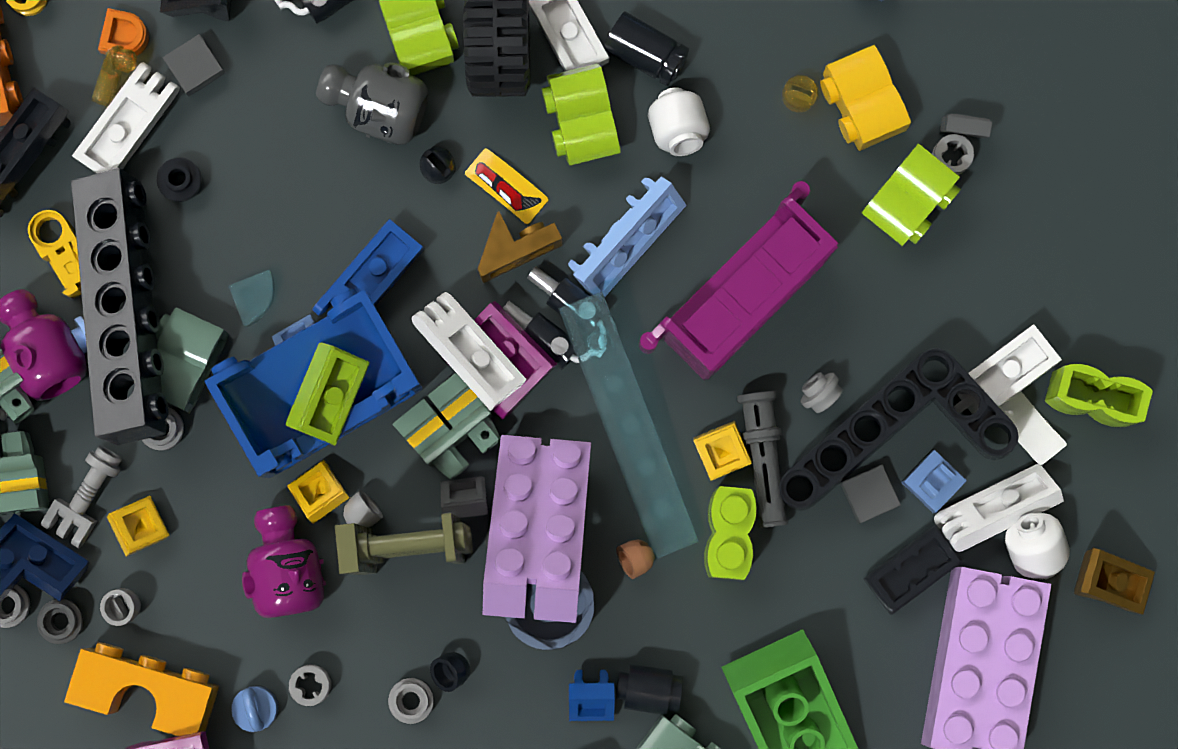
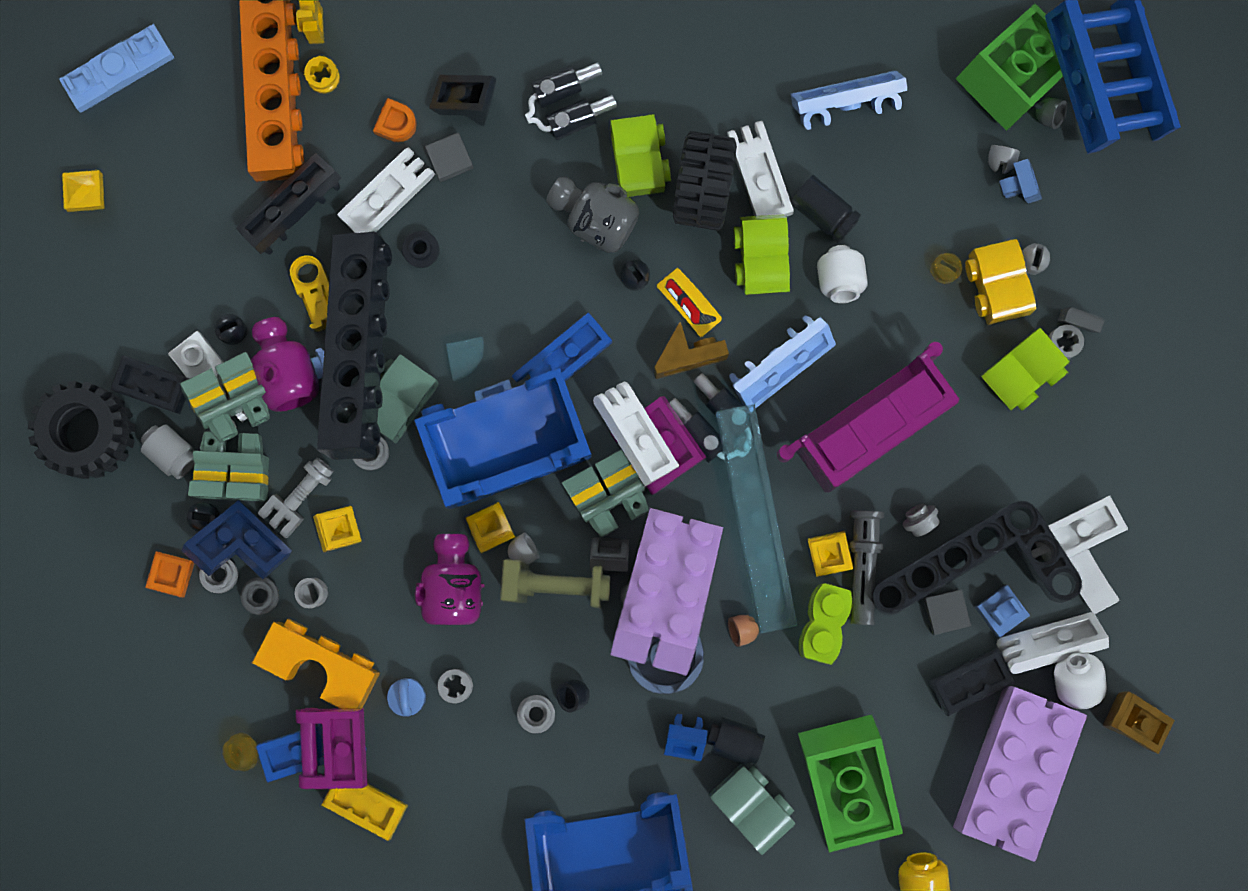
camera: 15 degrees right, 0 degrees up
(114, 64) = (387, 143): clear yellow arm -> none
(327, 393) = (512, 447): lime slope -> none
(892, 62) = (1029, 254): none -> light grey hinge
(1110, 401) = (1160, 570): lime brick -> none

